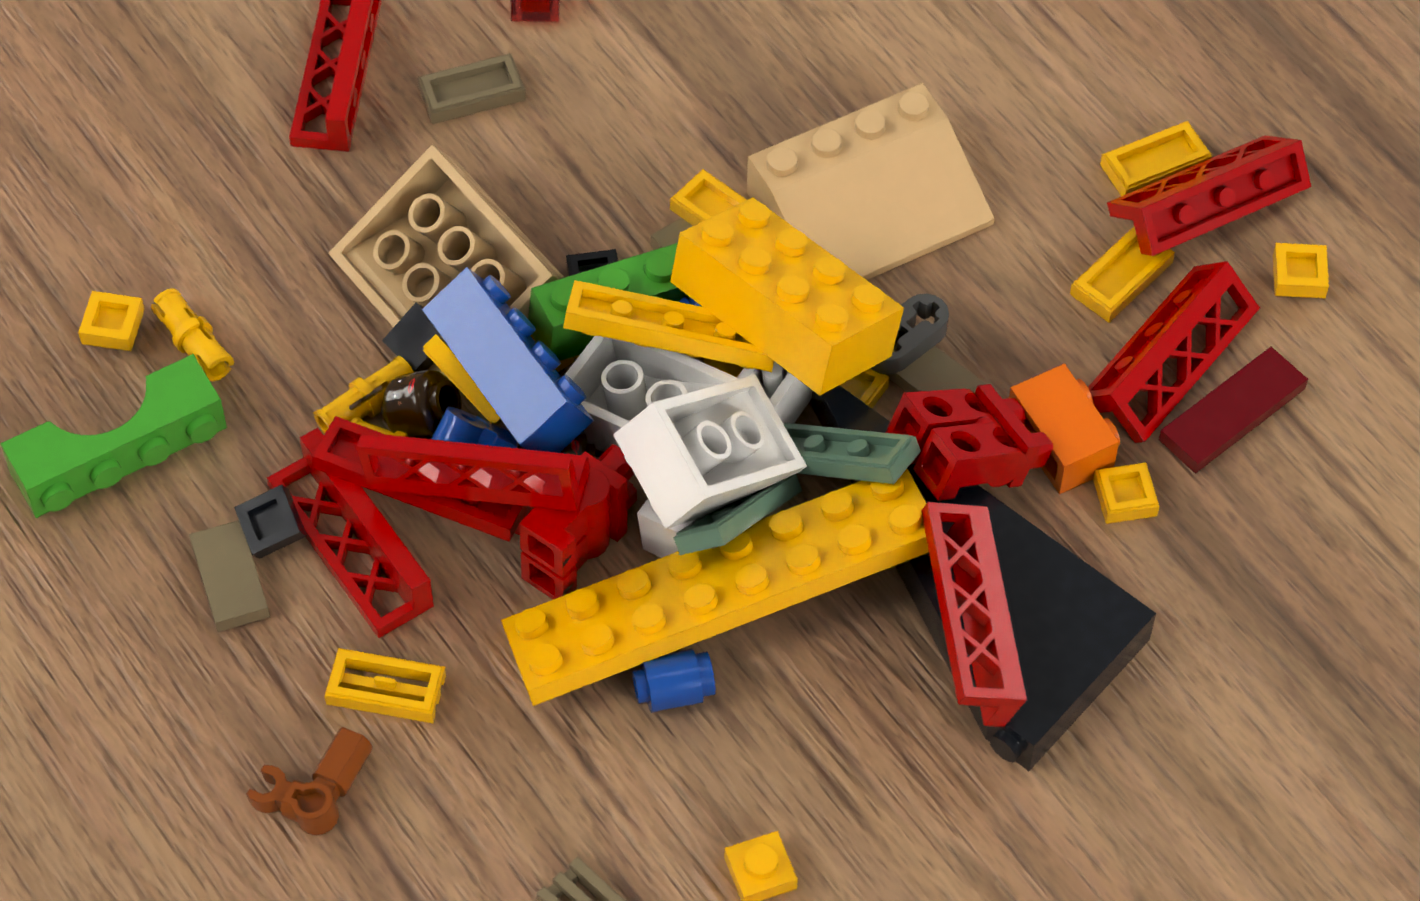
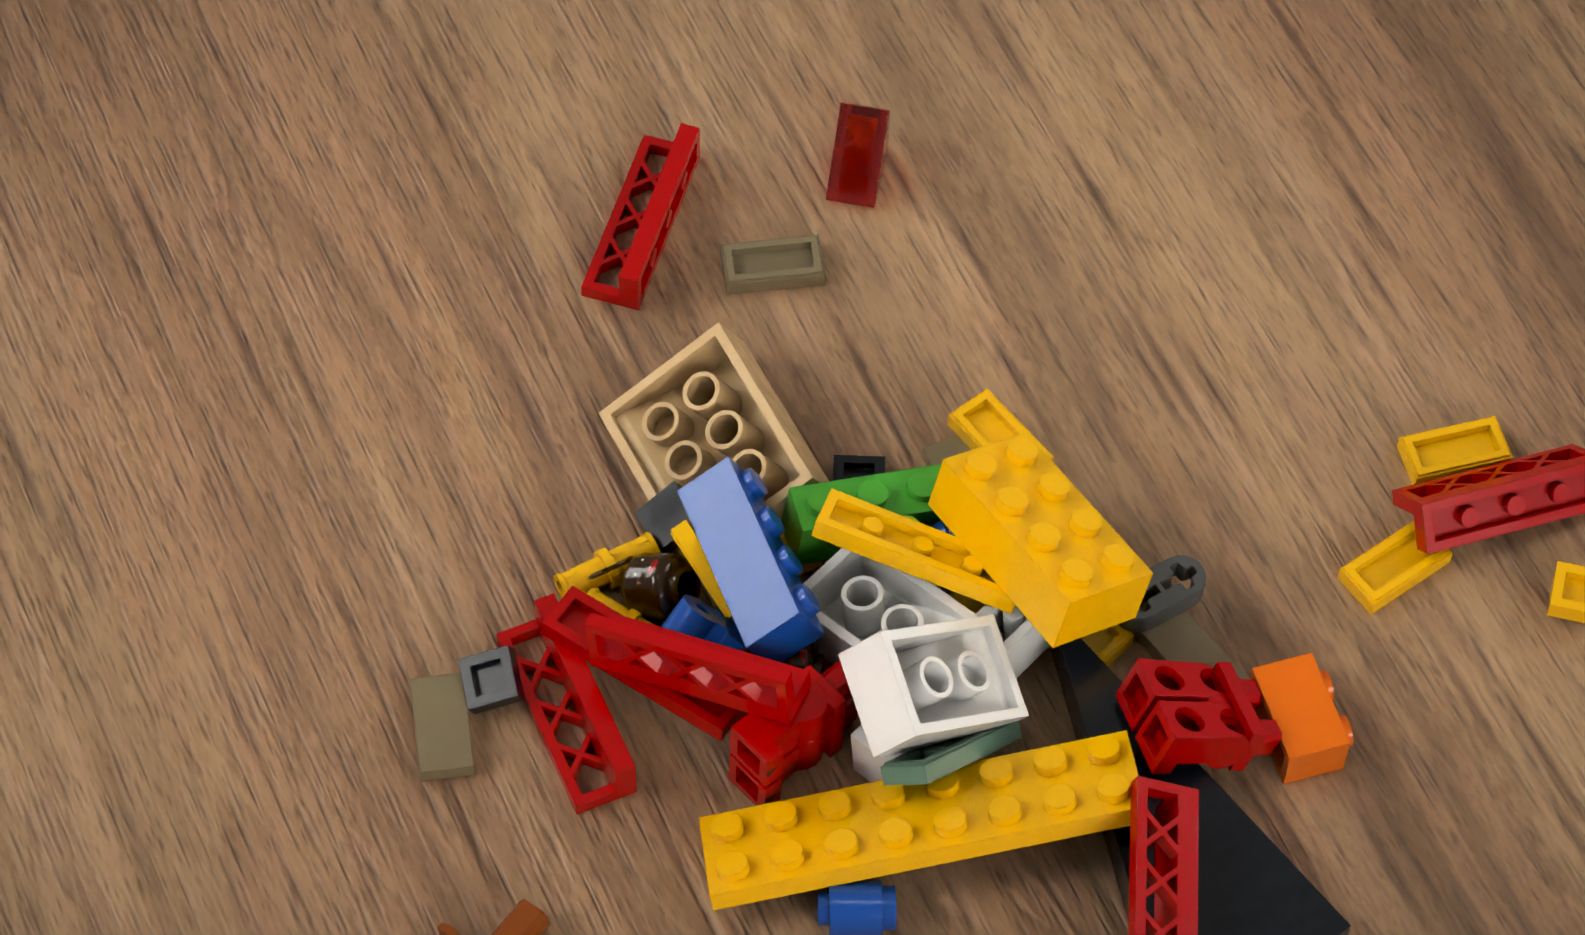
camera: 10 degrees right, 0 degrees up
(63, 466) = (298, 589): bright green arch -> none
(111, 321) = (372, 448): yellow plate -> none
(192, 333) = (449, 475): yellow pin -> none
(384, 694) = (567, 881): yellow tile -> none
(853, 452) = (1076, 709): sand green tile -> none
(875, 183) = (1156, 434): tan slope -> none
(1126, 493) = (1350, 795): yellow tile -> none
(1158, 338) = (1417, 639): red fence -> none
(1233, 409) = (1478, 727): dark red tile -> none

